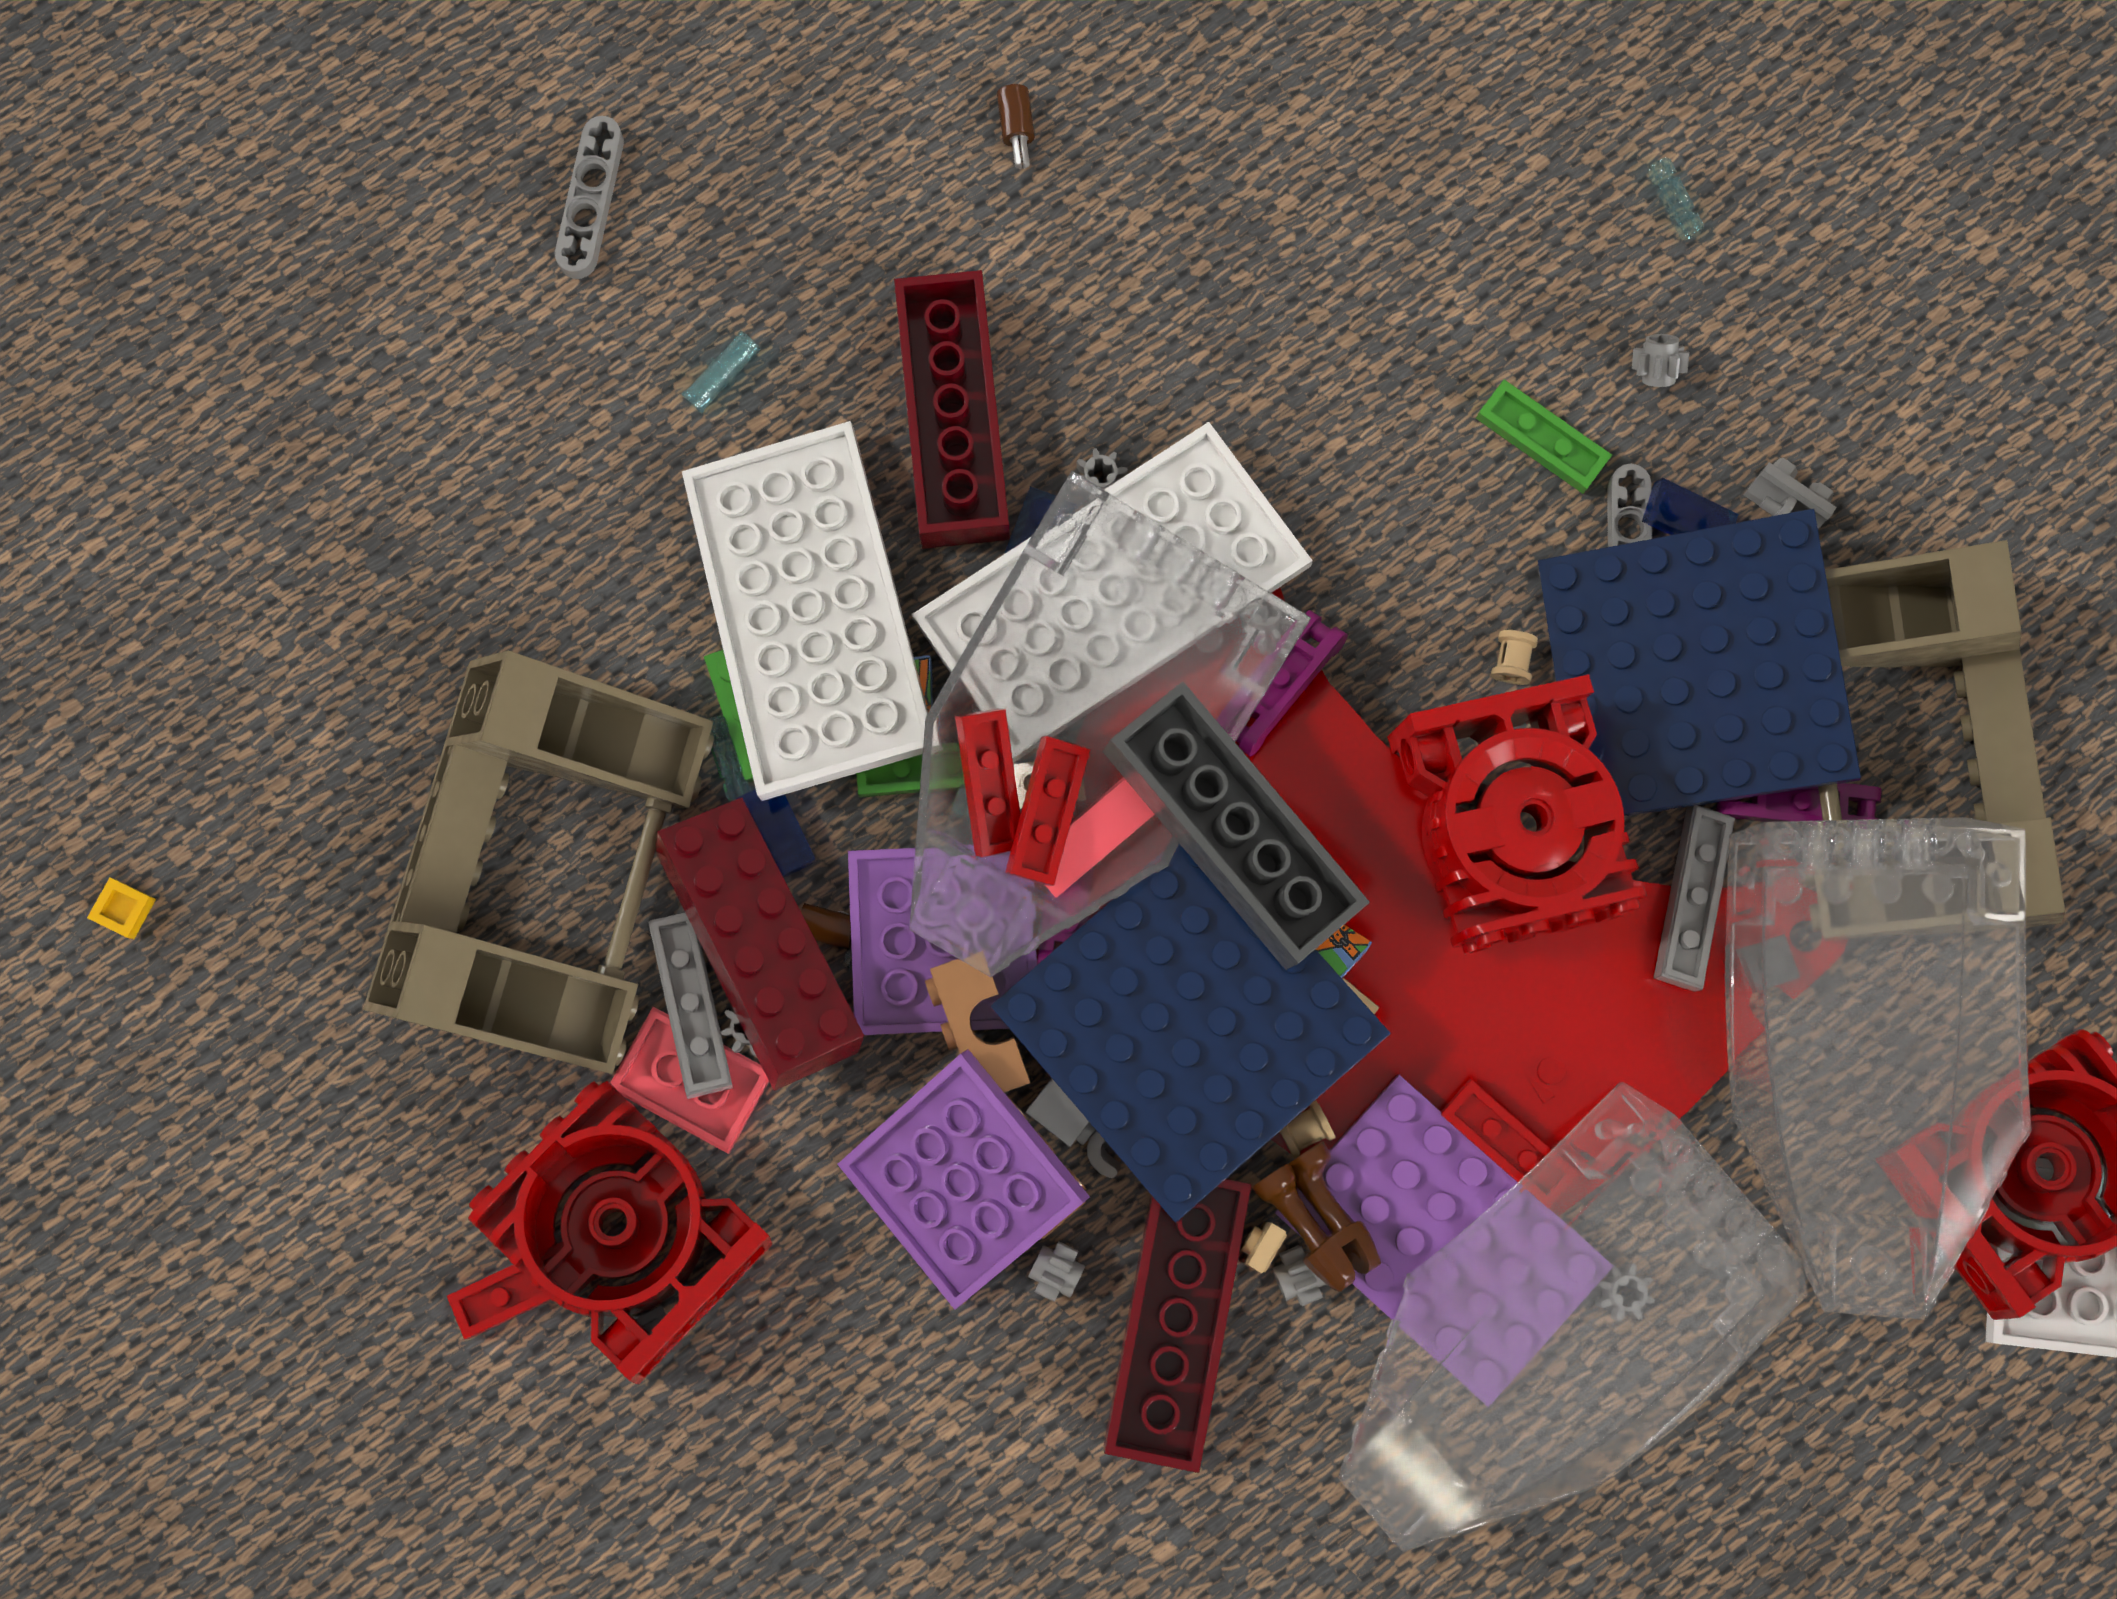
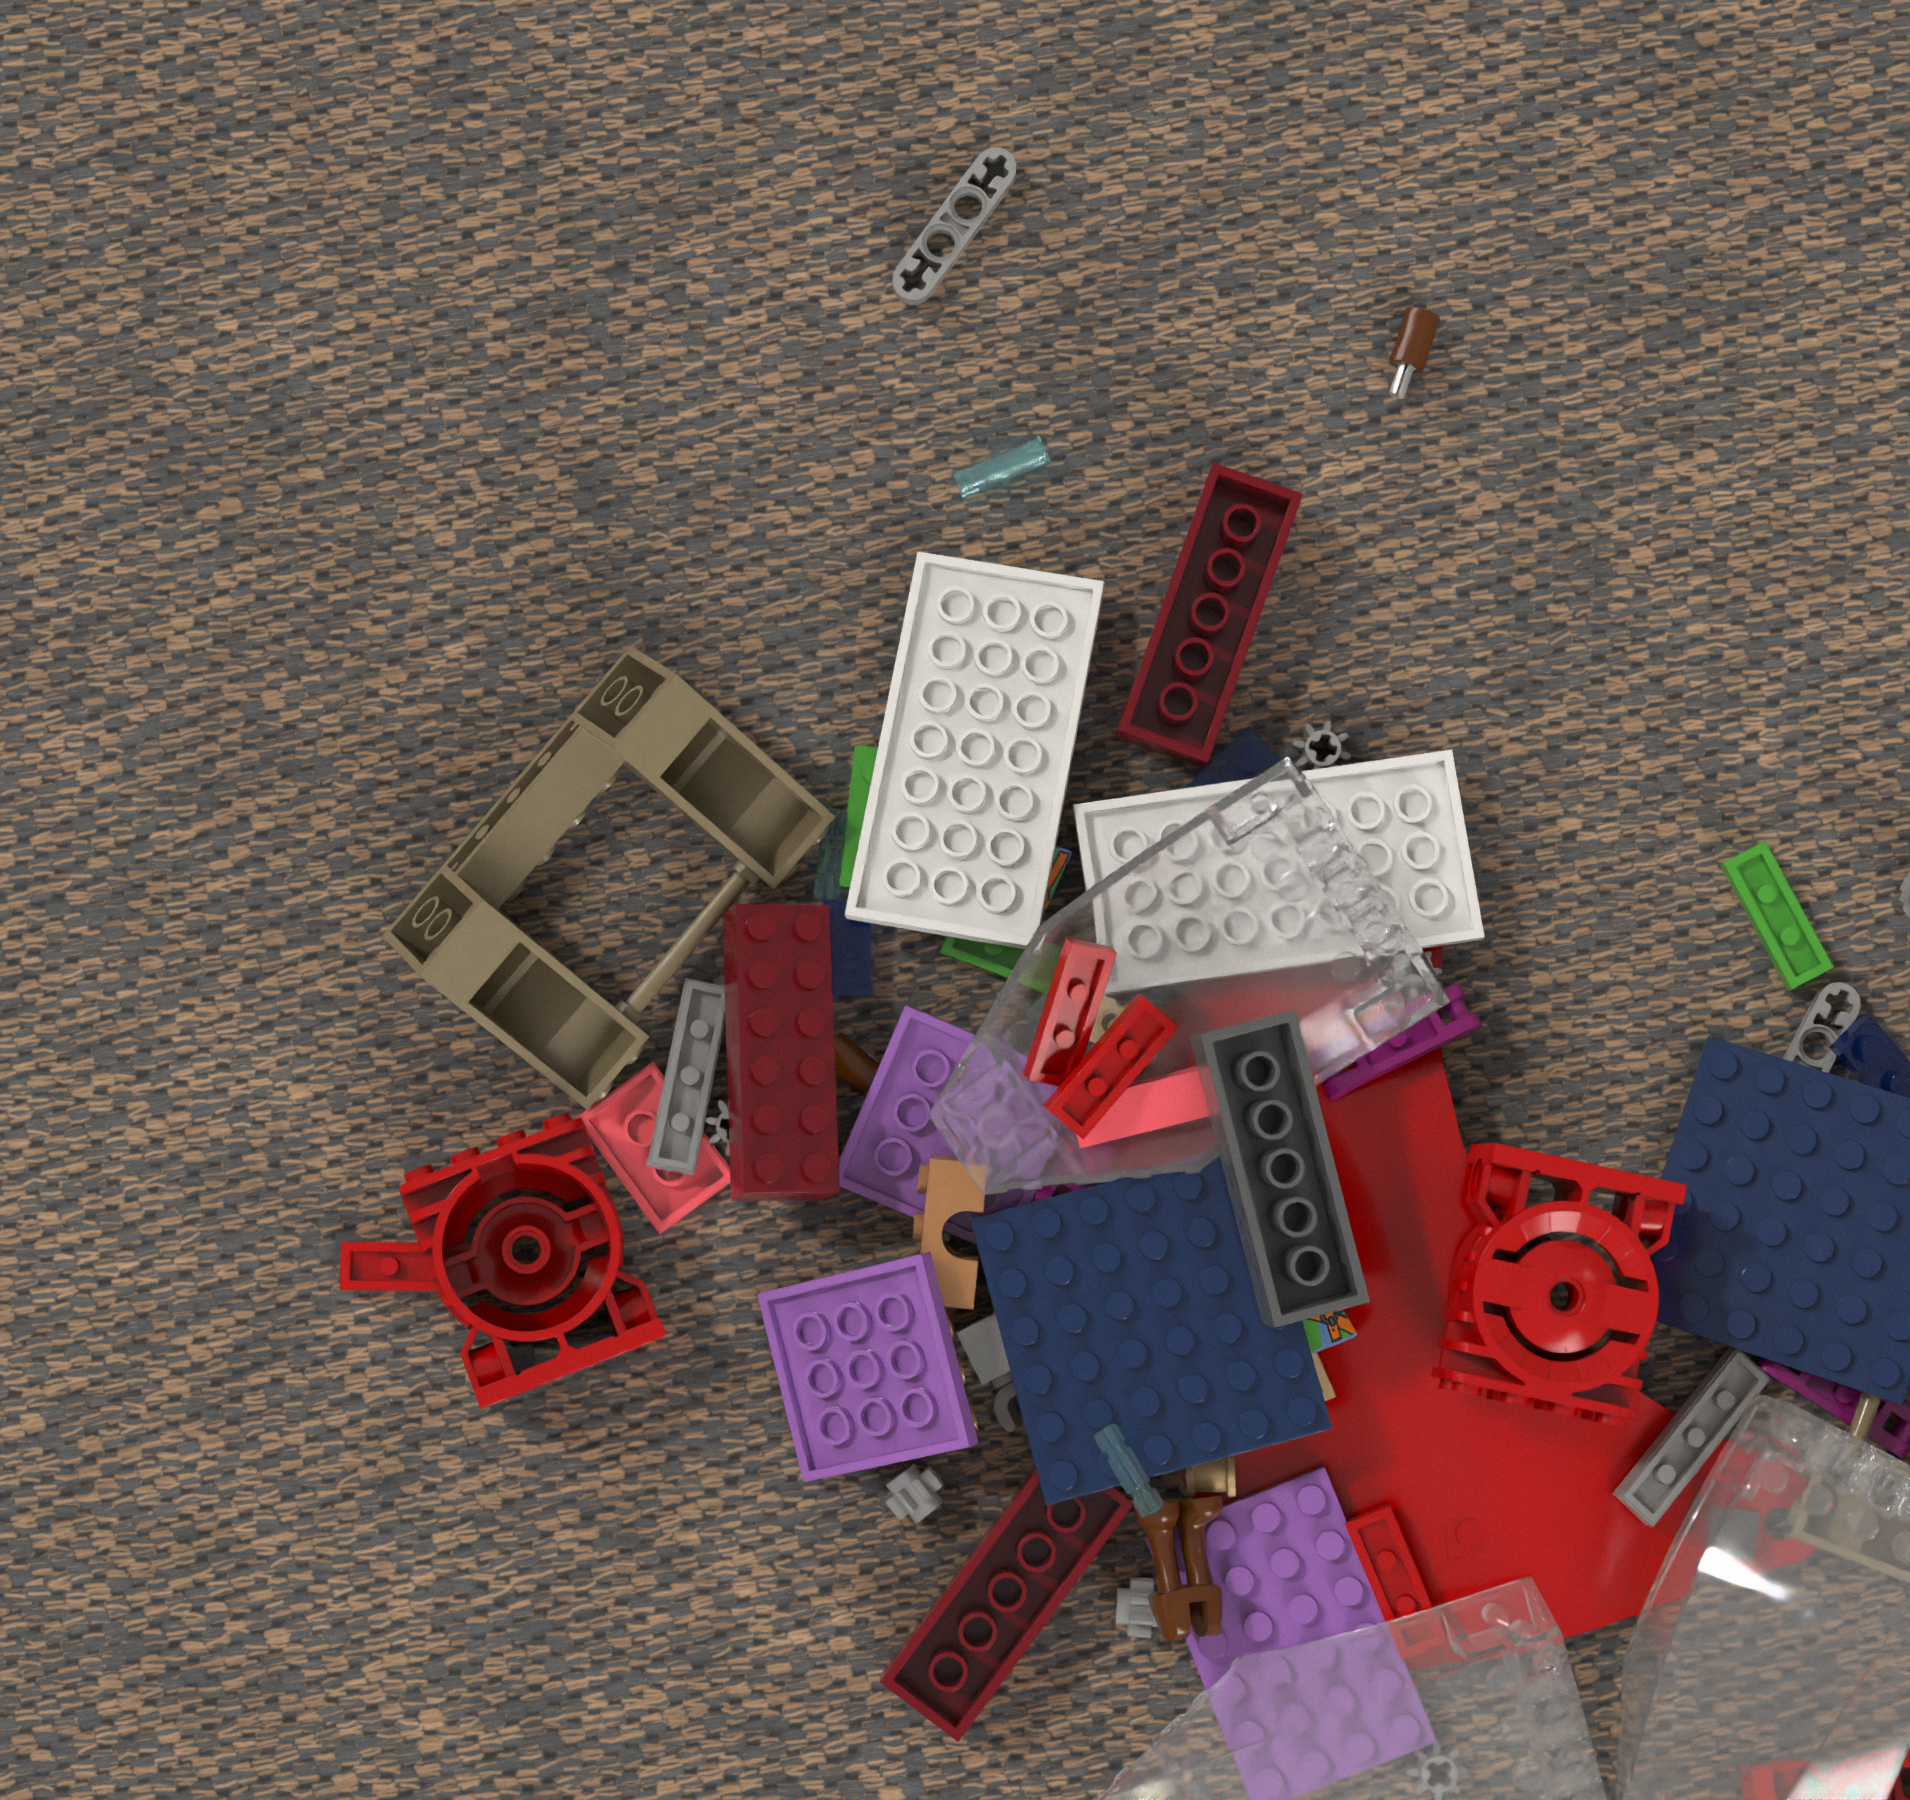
camera: 25 degrees right, 5 degrees up
(121, 908) = (198, 728): yellow plate -> none
(1232, 1154) = (1128, 1470): none -> clear light blue axle
(1262, 1246) = (1116, 1564): tan plate -> none
(1514, 657) = (1636, 1120): tan bush -> none

